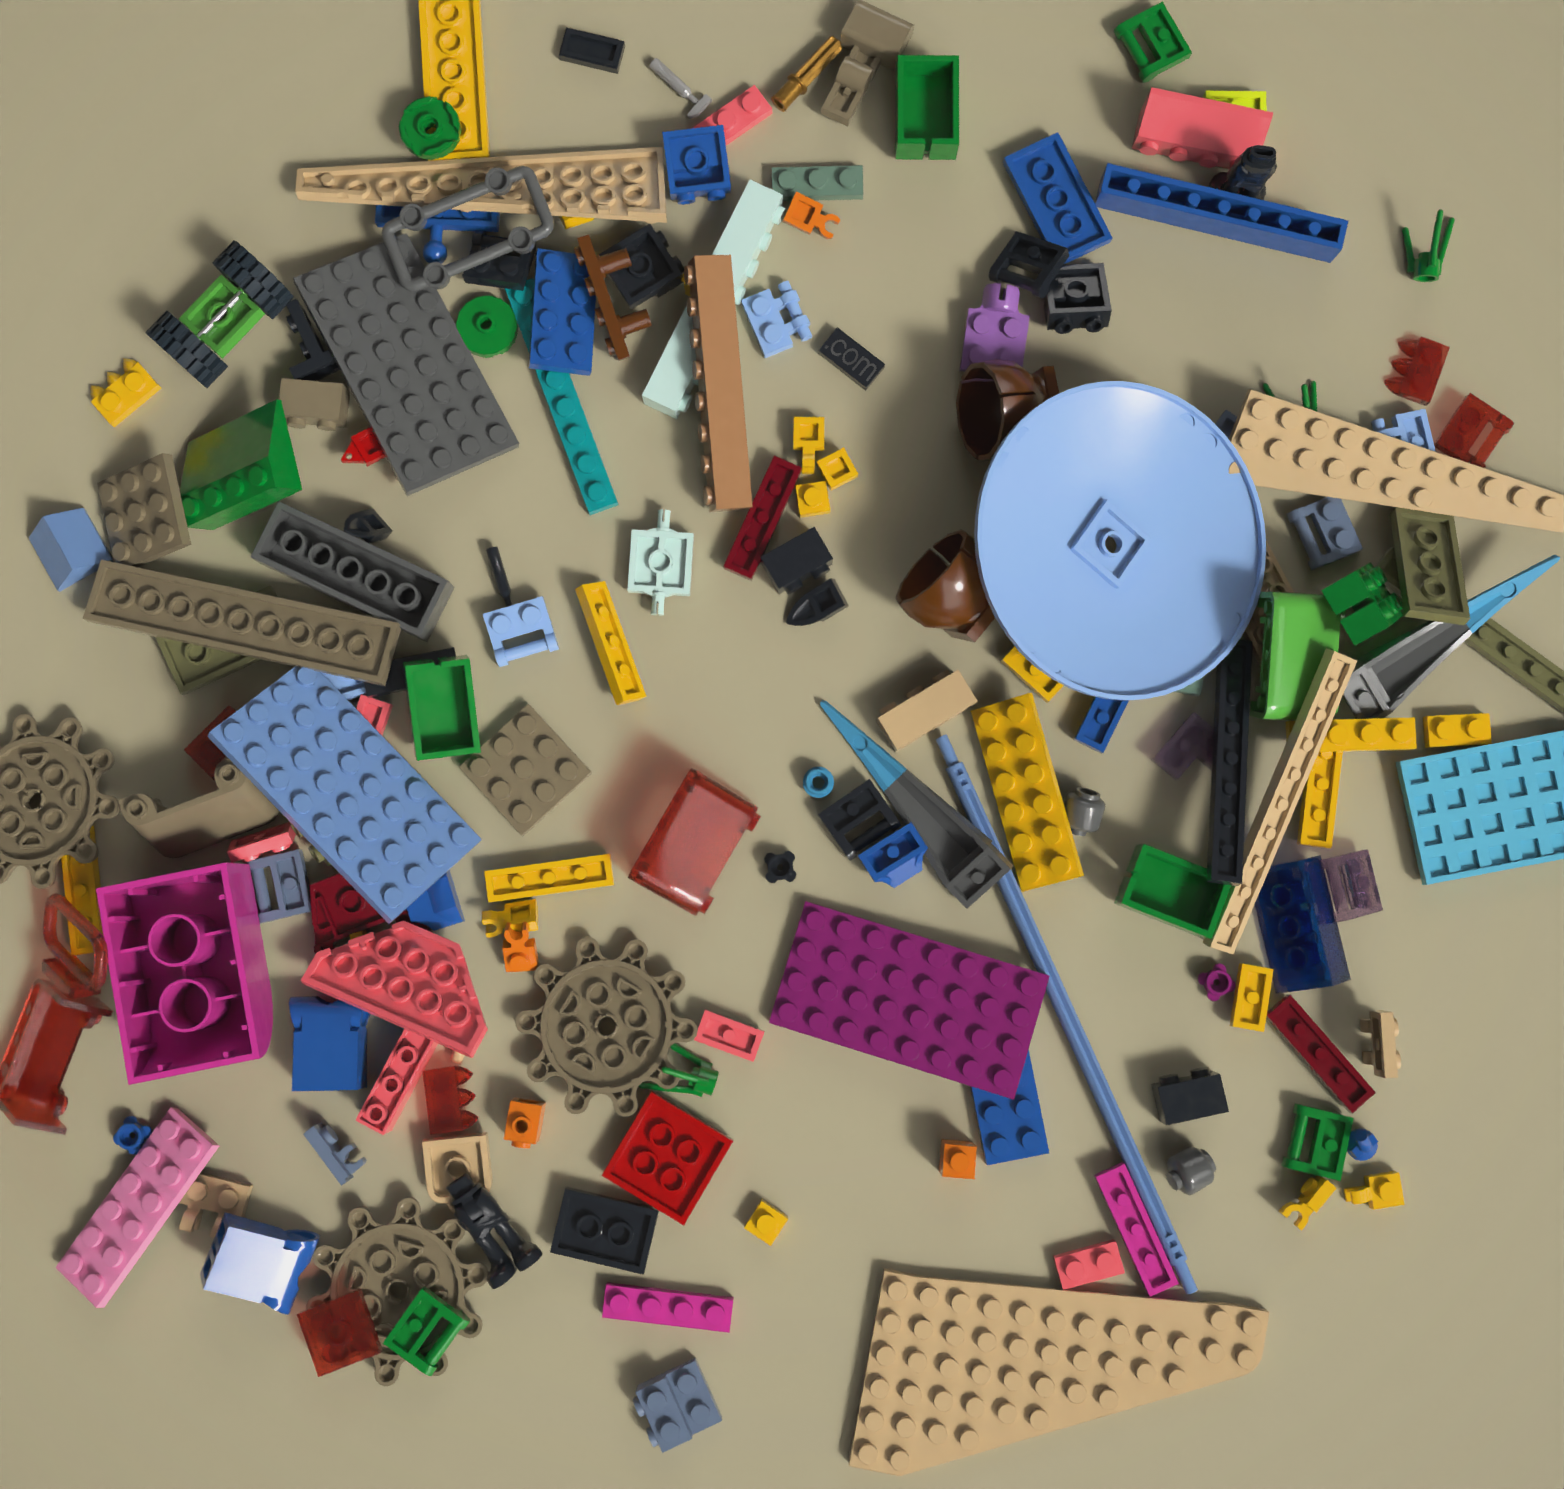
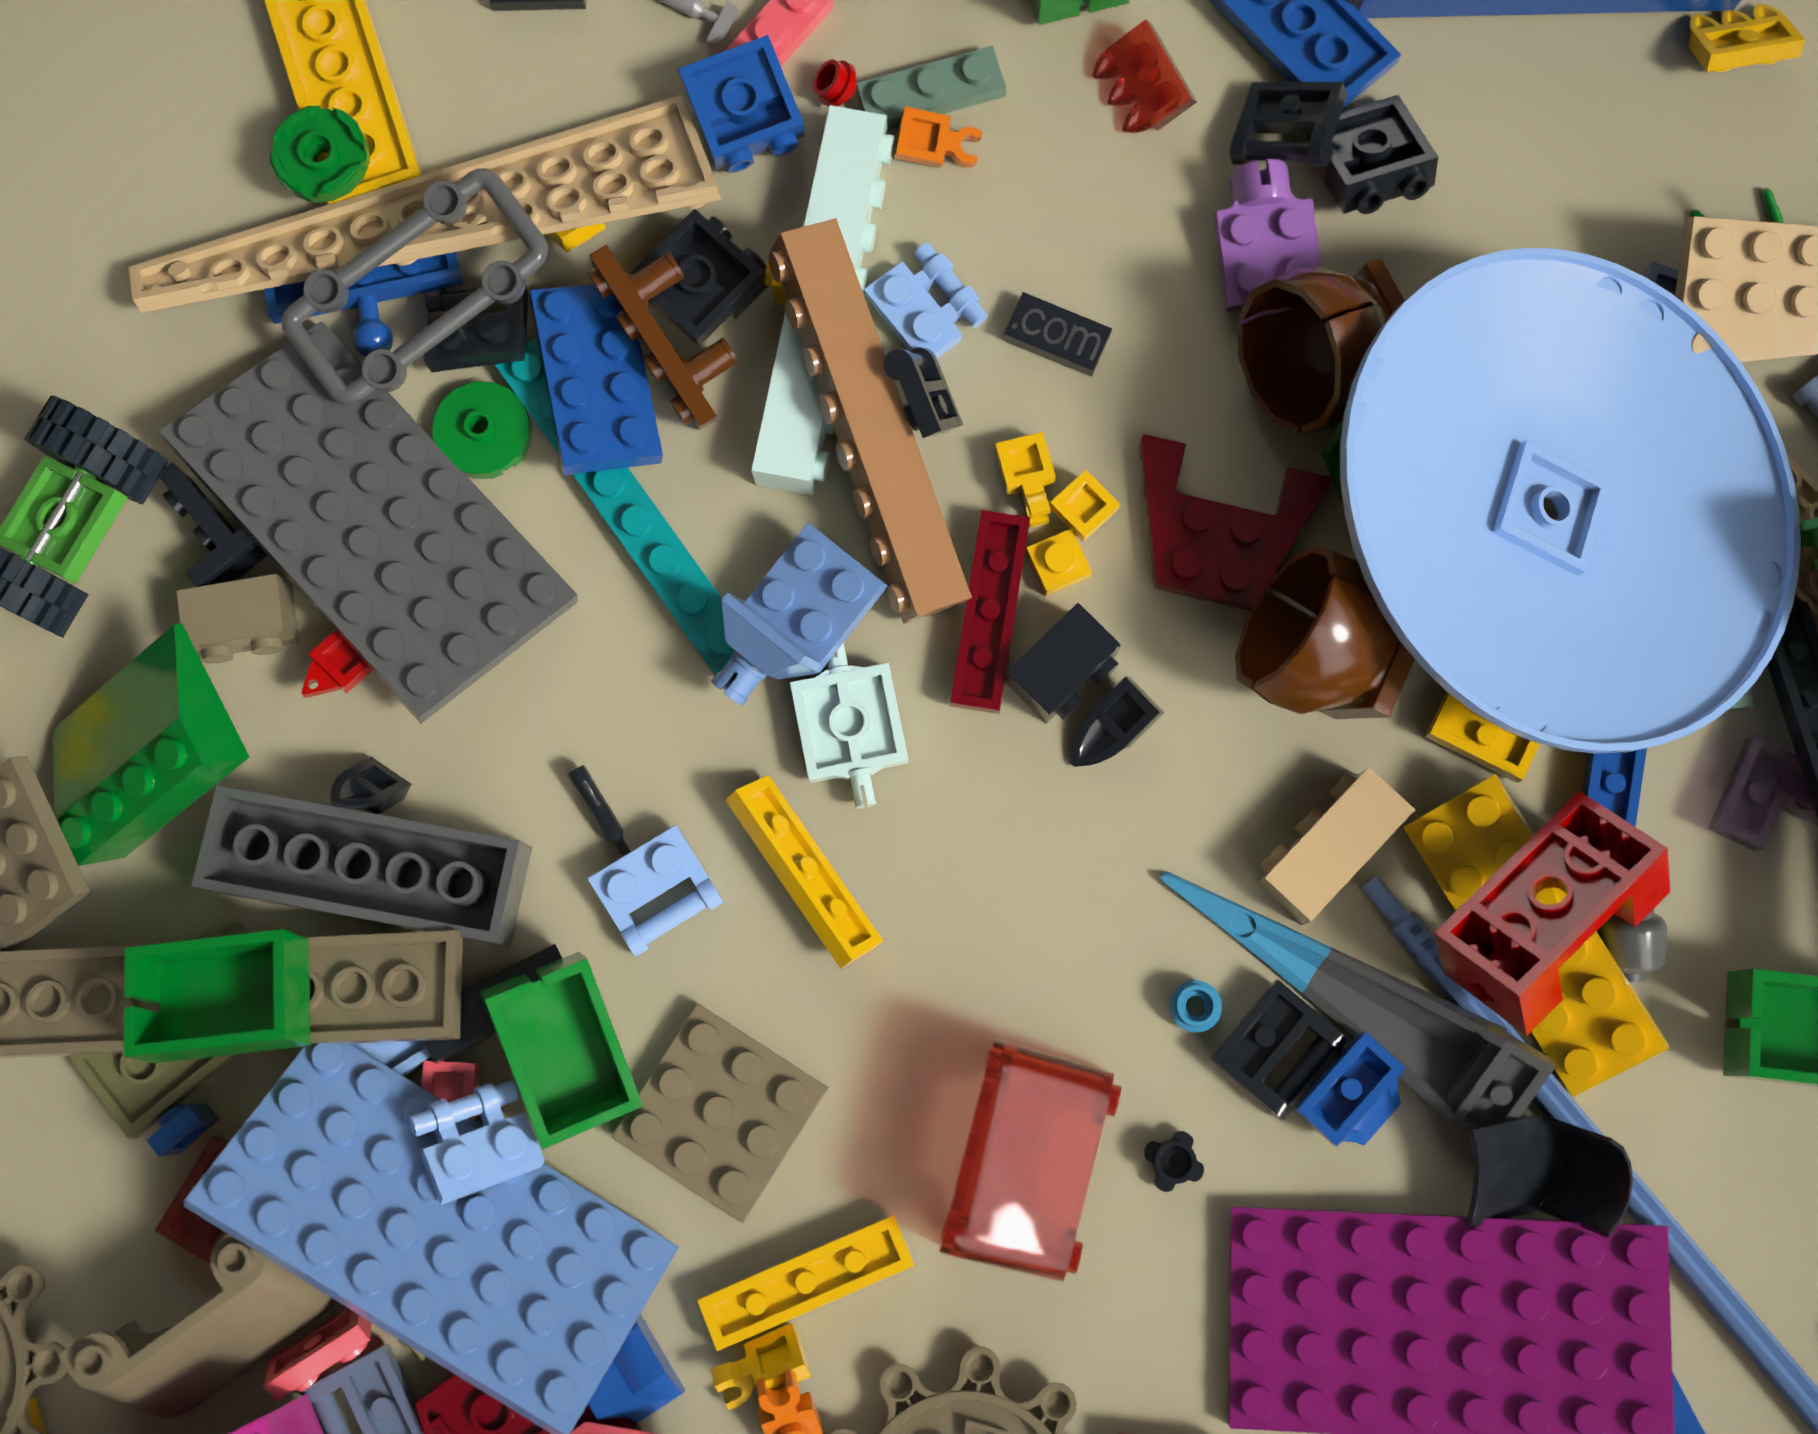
camera: 10 degrees left, 5 degrees down
(212, 696) = (181, 1128): none -> blue plate
(252, 624) = (217, 996): none -> green piece
(380, 756) = (482, 1156): none -> light blue plate
(644, 489) = (795, 614): none -> medium blue plate
(757, 384) = (928, 395): none -> black plate
(758, 164) = (835, 82): none -> red plate
(908, 514) = (1216, 547): none -> dark red wing
(952, 212) = (1146, 77): none -> clear red plate
(989, 926) = (1551, 1170): none -> black piece
(1004, 789) = (1511, 945): none -> red plate
(1328, 283) = (1744, 40): none -> yellow plate

